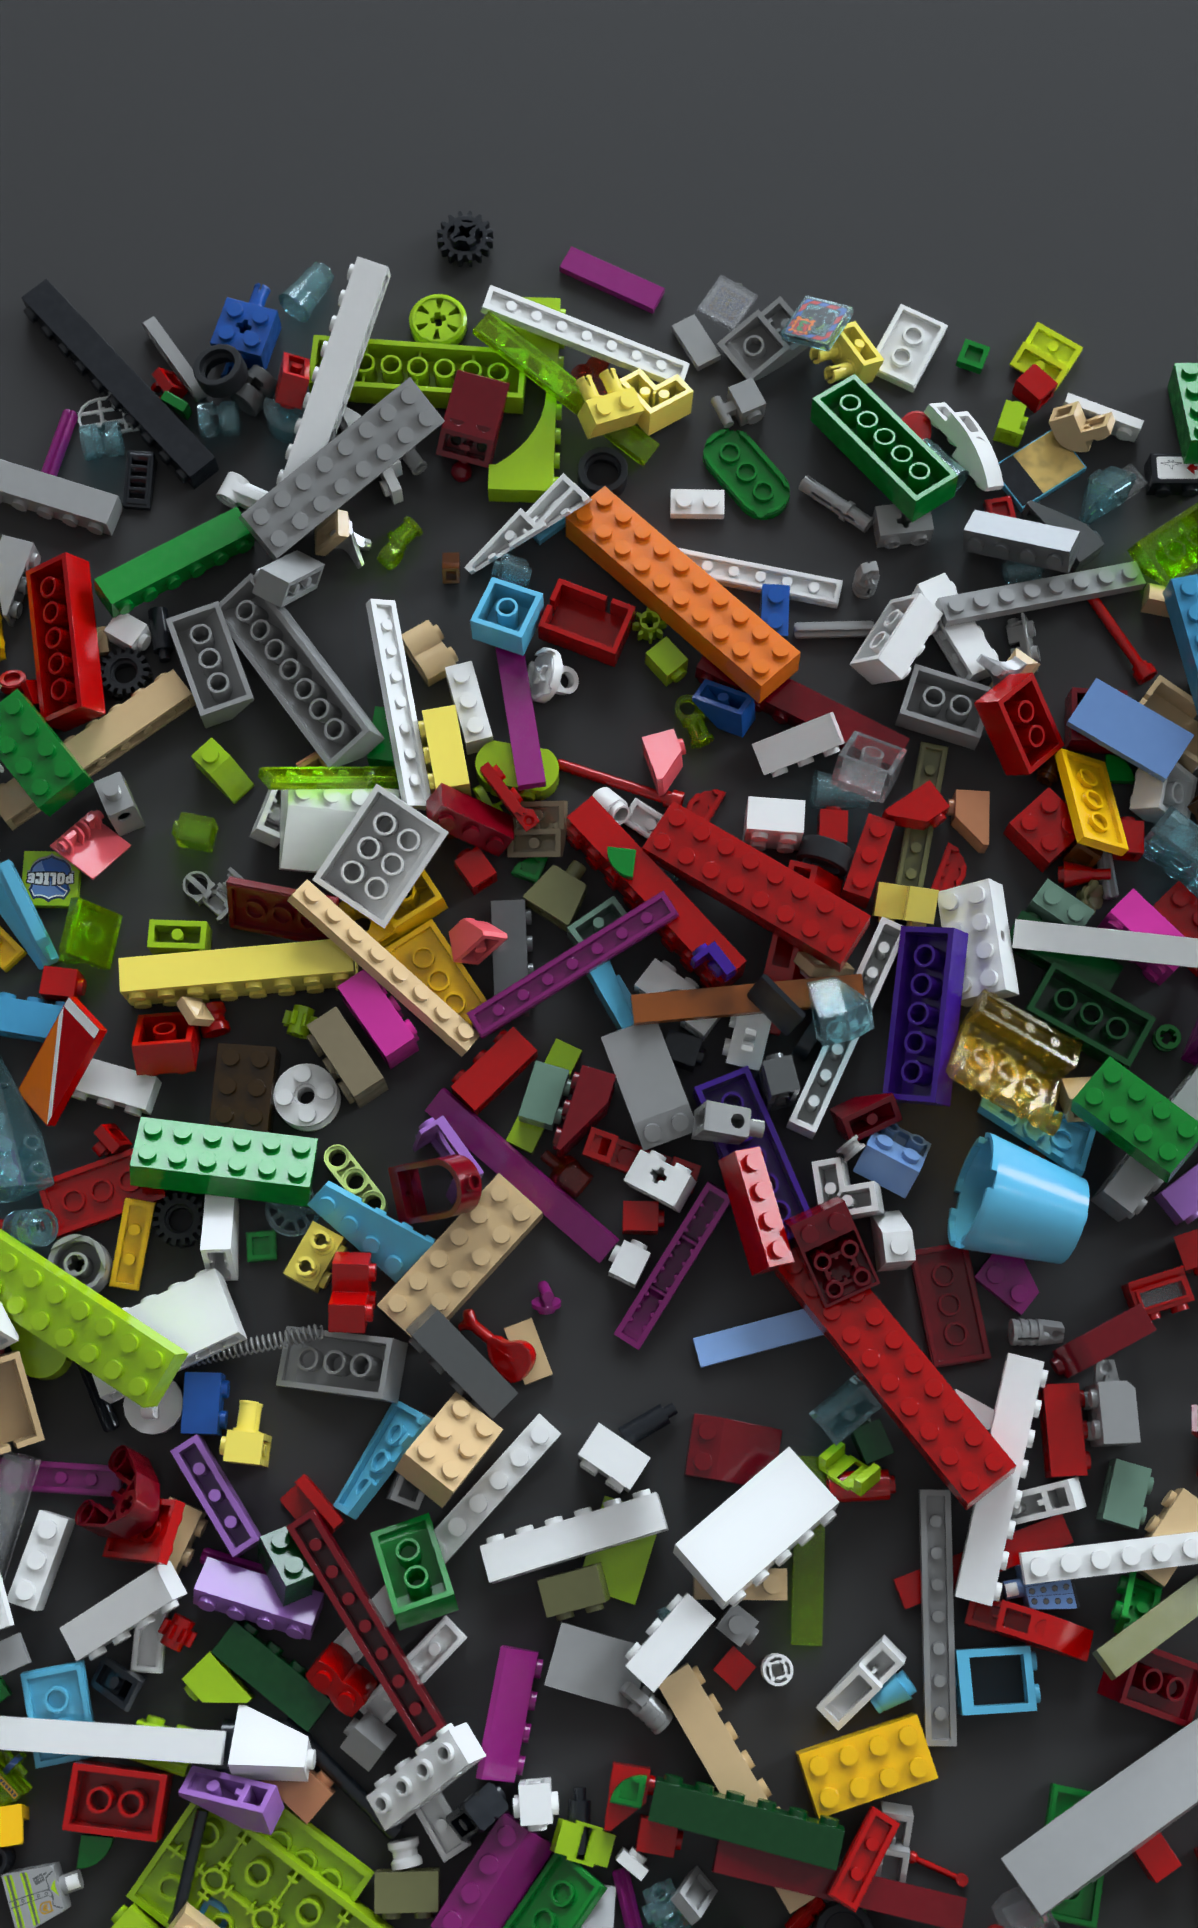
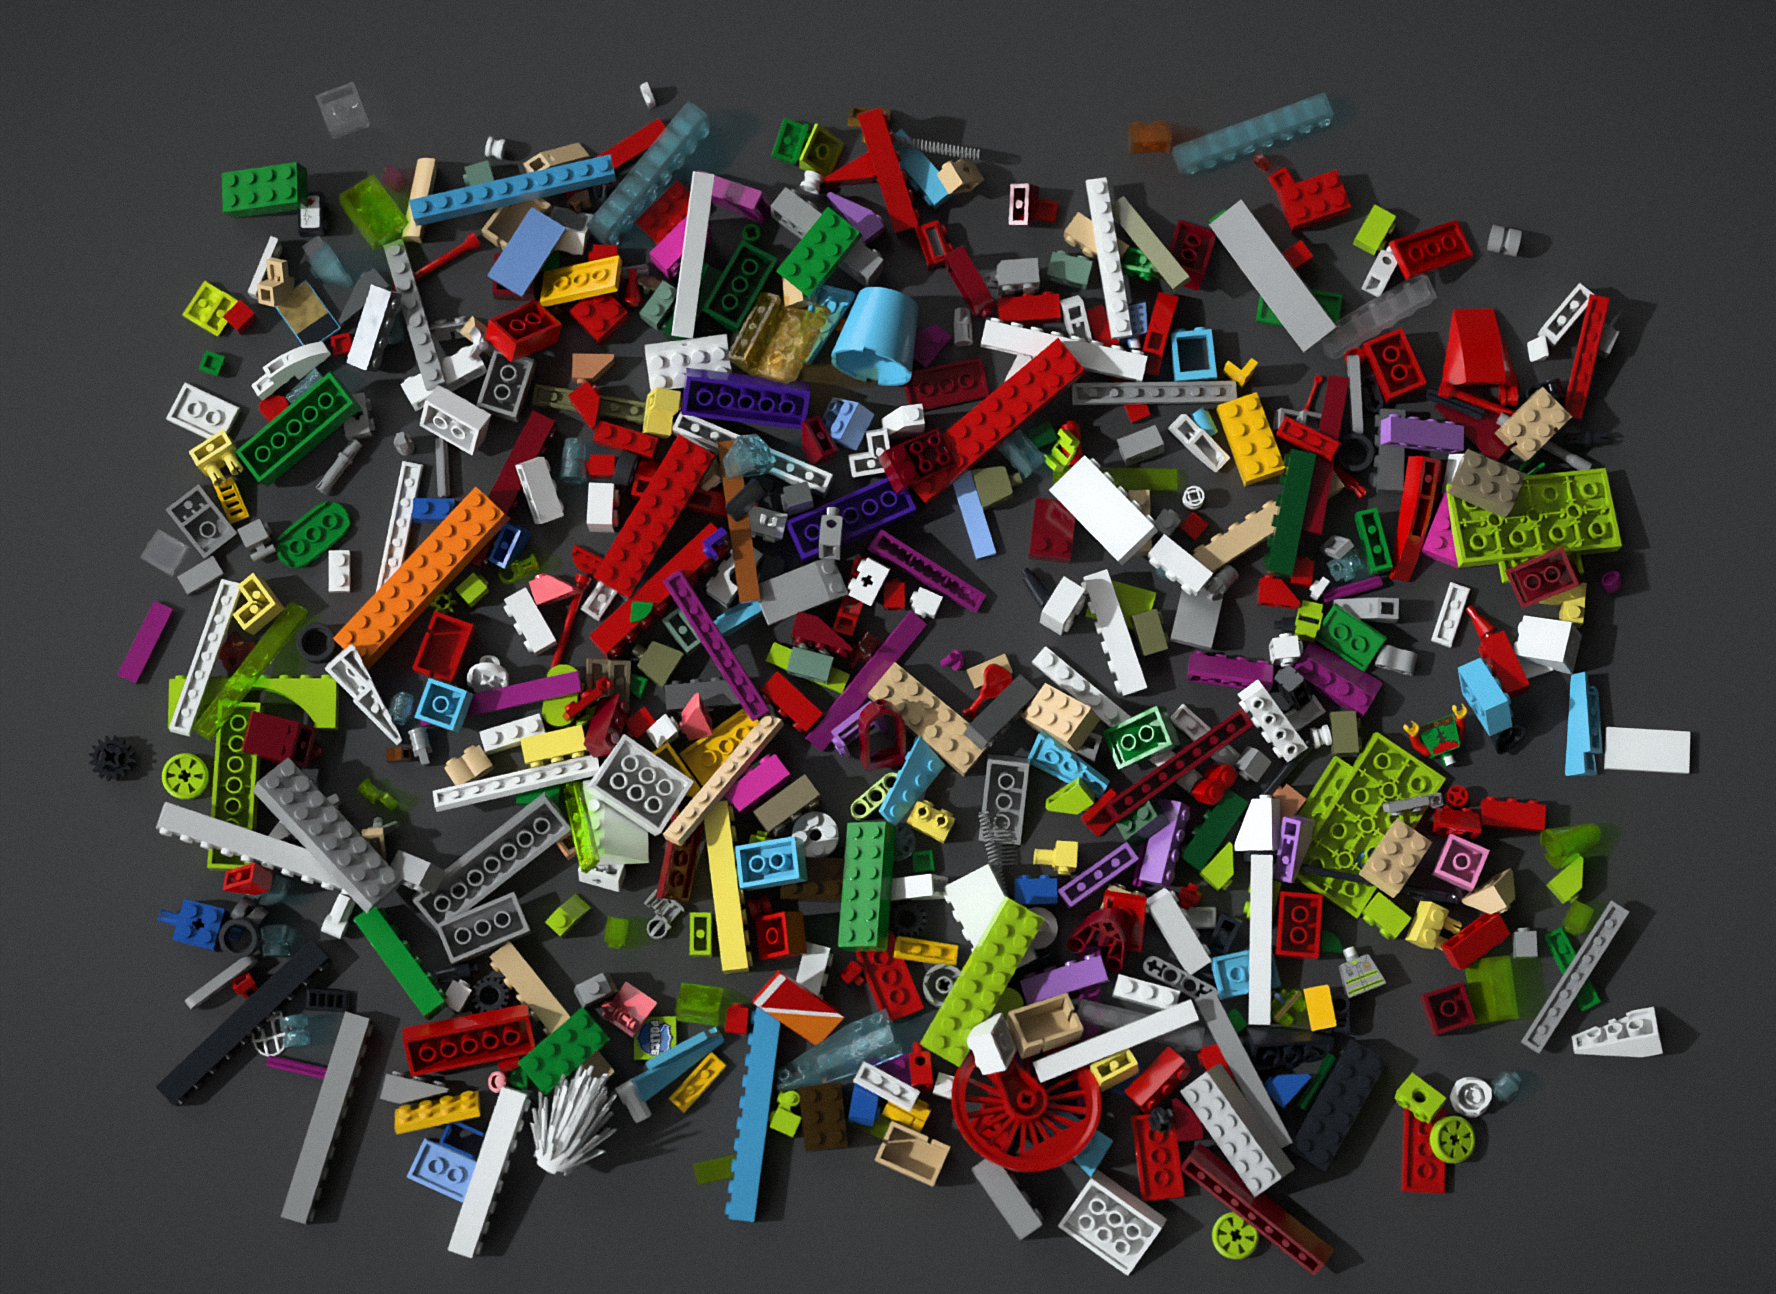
camera: 90 degrees left, 5 degrees up
(32, 1226) = (918, 1019): clear light blue wheel -> none
(56, 1611) = (1182, 976): none -> light grey beam
(70, 1440) = (1067, 979): none -> medium lavender brick
(176, 404) = (263, 974): green tile -> none
(195, 1011) = (758, 915): tan tile -> none
(260, 1027) = (771, 863): none -> medium azure brick
(306, 291) = (161, 880): clear light blue plant -> none
(333, 1461) = (1072, 798): none -> lime slope
(351, 1295) = (956, 792): red brick -> none
(460, 596) = (421, 744): none -> light grey hinge
(461, 898) = (663, 731): none -> white slope
(607, 412) = (274, 637): light yellow brick -> none
(613, 804) = (587, 626): white brick -> none
(619, 732) = (529, 622): none -> white brick
(630, 1791) = (1275, 589): green tile -> none
(756, 1210) = (891, 512): red brick -> none
(799, 1368) = (994, 485): none -> olive torso
(806, 381) = (240, 516): none -> yellow slope
(817, 323) = (194, 479): tile -> none
(850, 1148) = (843, 449): light grey bush -> none
(857, 1591) = (1141, 445): none -> light grey hinge
(868, 767) = (560, 438): clear brick -> none
(950, 870) = (631, 383): red tile -> none
(962, 1754) = (1240, 376): none -> yellow panel
(1011, 423) = (270, 335): lime brick -> none

